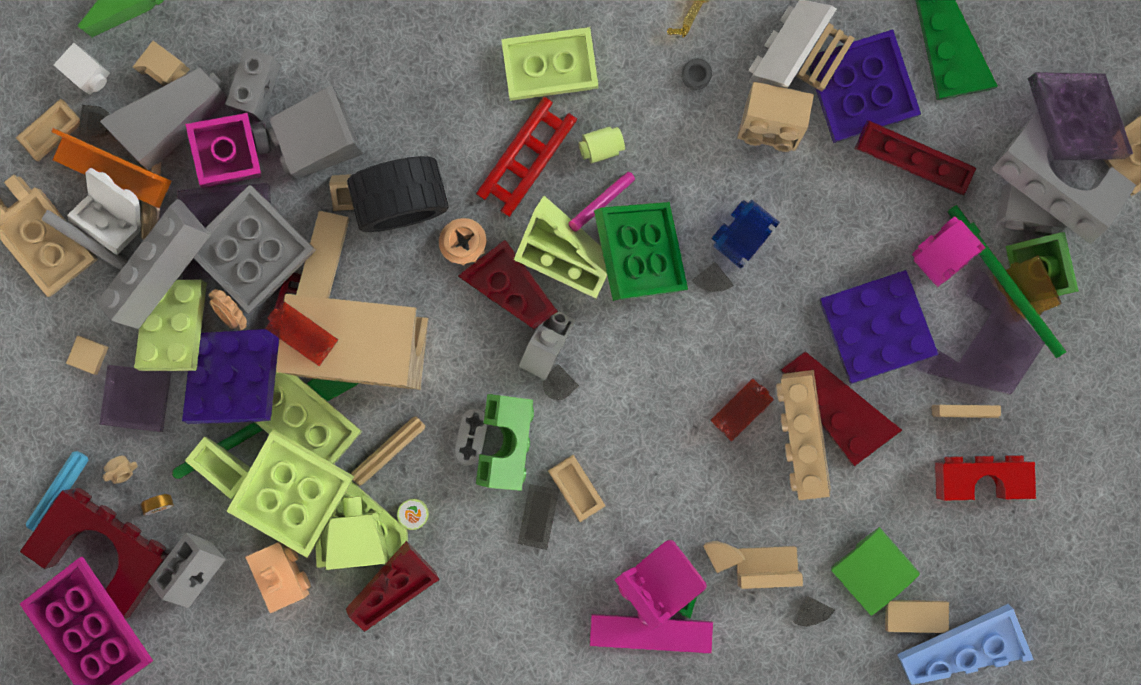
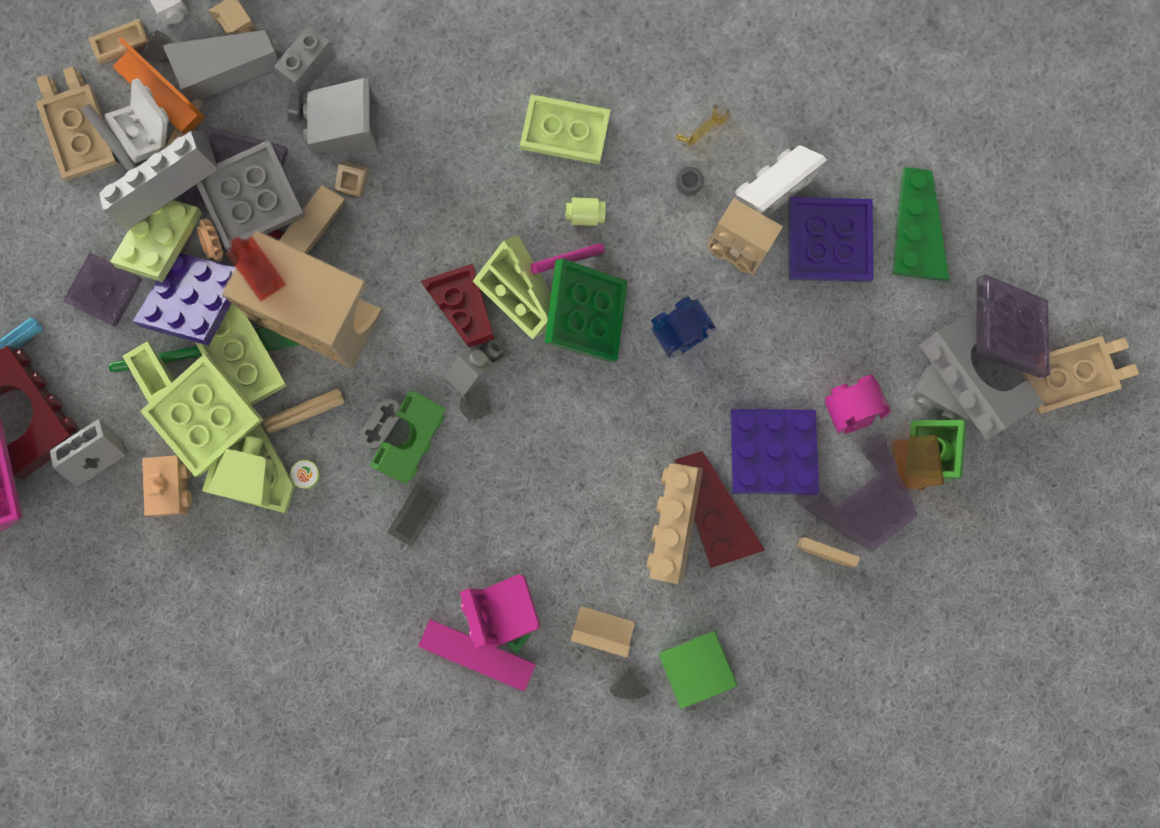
camera: 15 degrees right, 5 degrees down
(87, 355) = (76, 240): tan tile -> none
(119, 469) = (64, 346): tan plate -> none
(156, 504) = (85, 387): pearl gold tile -> none
(223, 150) = (257, 105): dark pink brick -> none
(393, 586) = (261, 531): dark red wing -> none
(397, 193) = (391, 189): black tyre -> none
(468, 229) = (424, 249): light nougat gear -> none
(508, 160) = (512, 217): red bar -> none
(576, 488) = (457, 501): tan tile -> none
(712, 279) = (642, 360): clear smoke tile -> none
(723, 555) = (566, 607): tan tile -> none
(742, 409) = (628, 483): clear red hinge -> none
(838, 36) = (822, 188): tan tile -> none
(915, 158) = (855, 315): dark red tile -> none
(917, 616) = (722, 724): tan tile -> none
(976, 644) = (765, 768): light blue wing -> none
(1012, 288) = (904, 459): green bar -> none
(1012, 477) = (850, 626): red arch -> none

